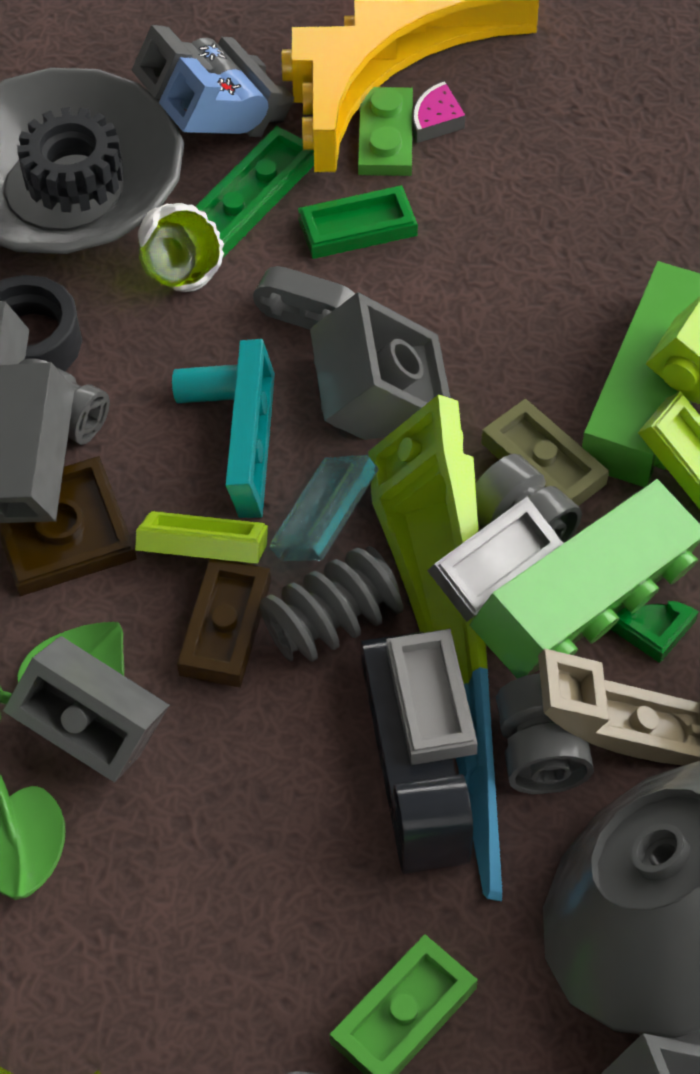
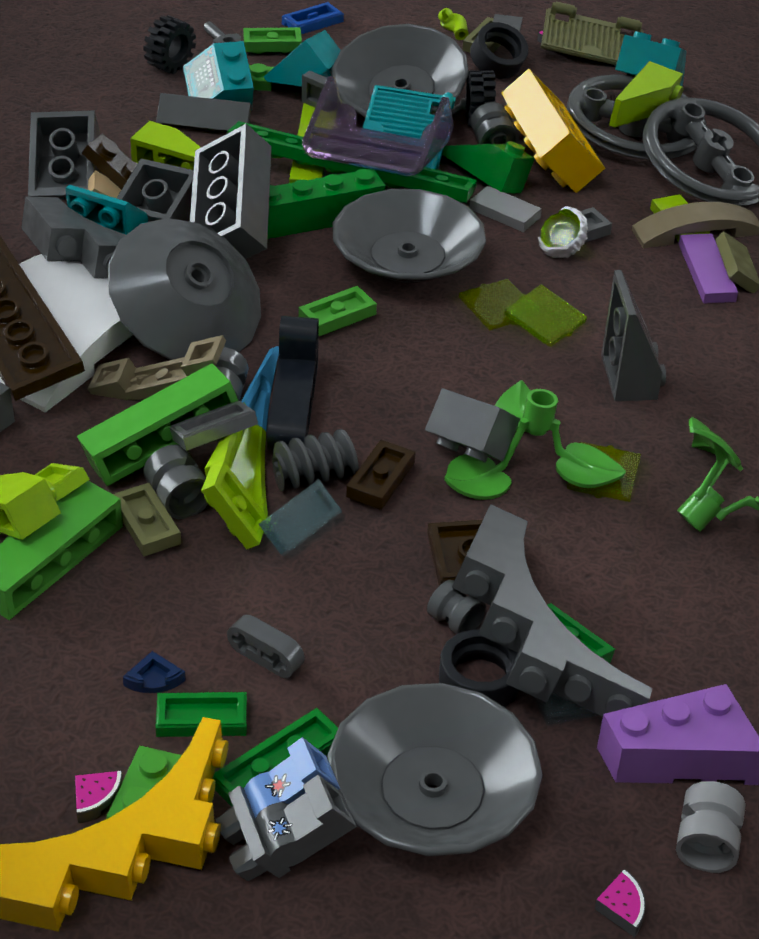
camera: 170 degrees left, 15 degrees down
(66, 137) = (426, 749): black tyre -> none
(179, 247) = (342, 700): clear neon green hair -> none
(202, 537) = (383, 515): lime tile -> none
(252, 389) = (335, 601): teal piece -> none
(374, 367) = (233, 581): dark grey slope -> none
(431, 697) = (277, 391): light grey tile -> none
(433, 257) = (154, 673): none -> dark blue tile

